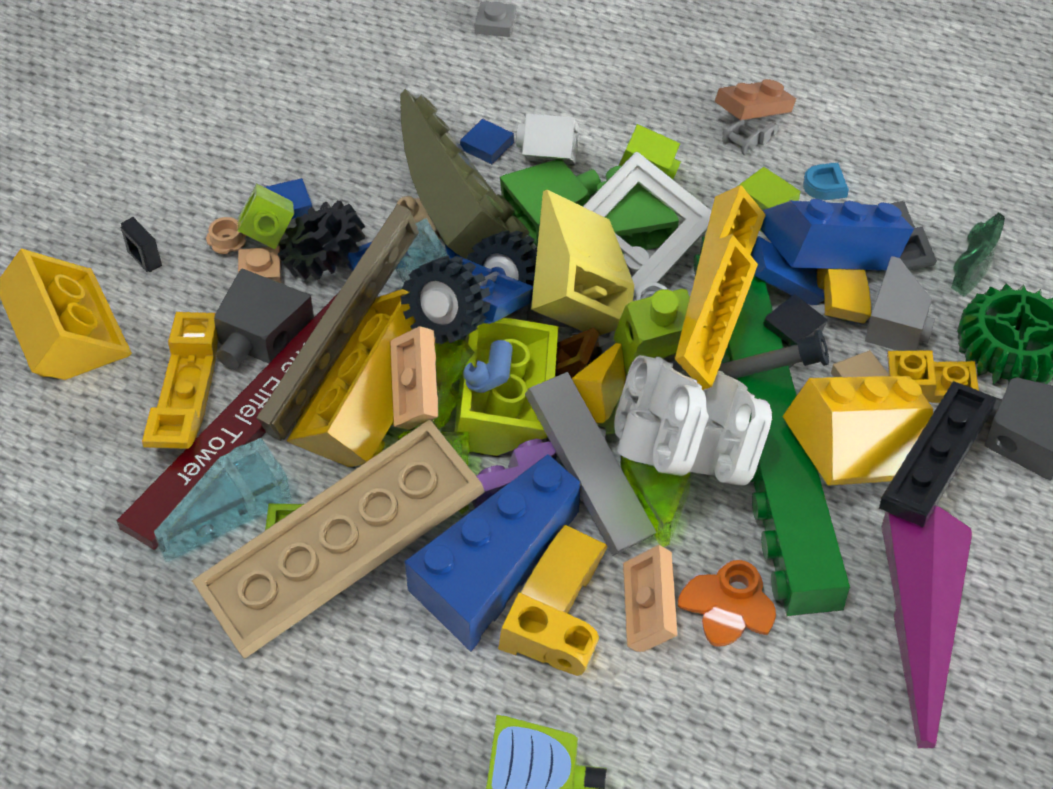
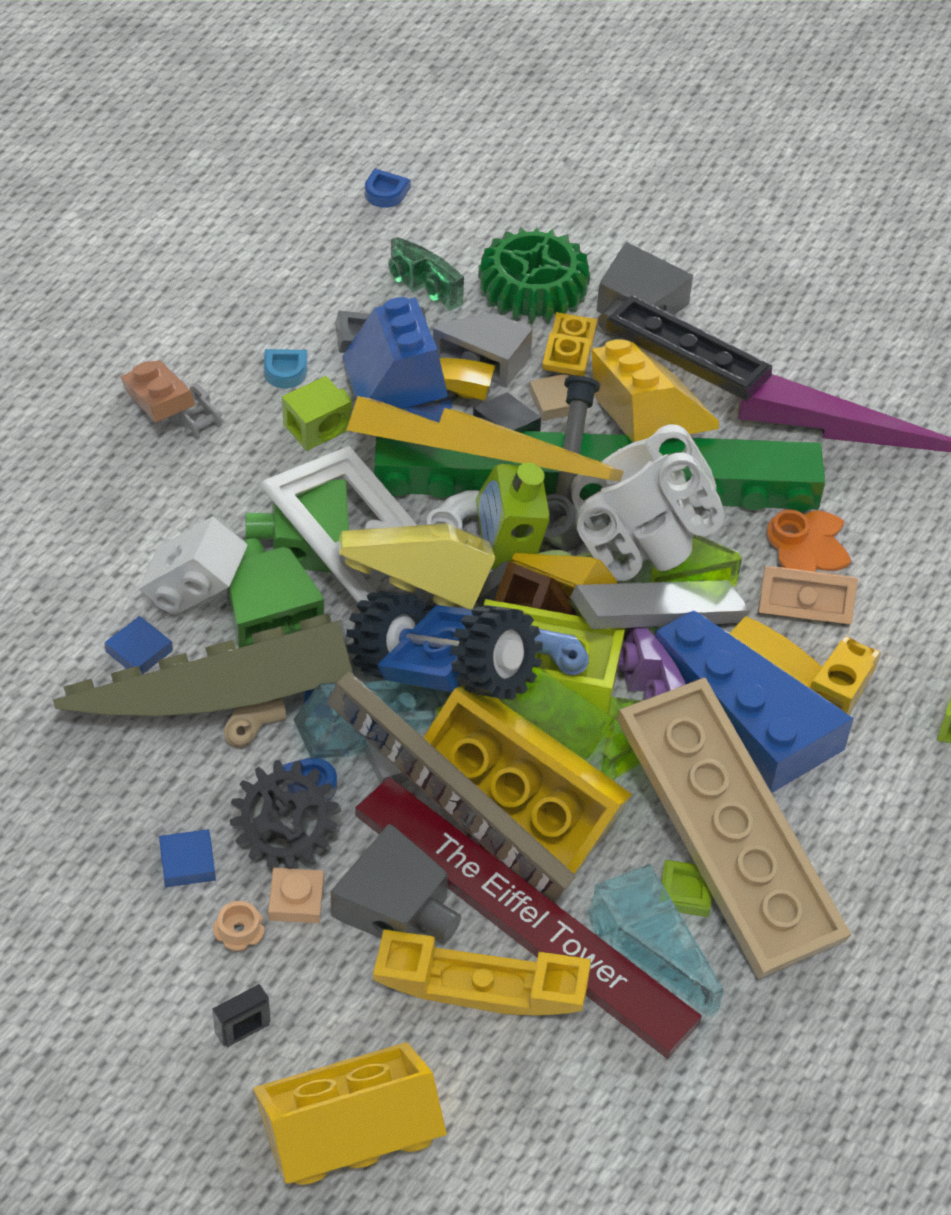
camera: 85 degrees left, 0 degrees up
(265, 216) = (231, 878): lime brick -> none
(414, 378) = (569, 712): light nougat plate -> none
(655, 148) = (228, 494): lime brick -> none

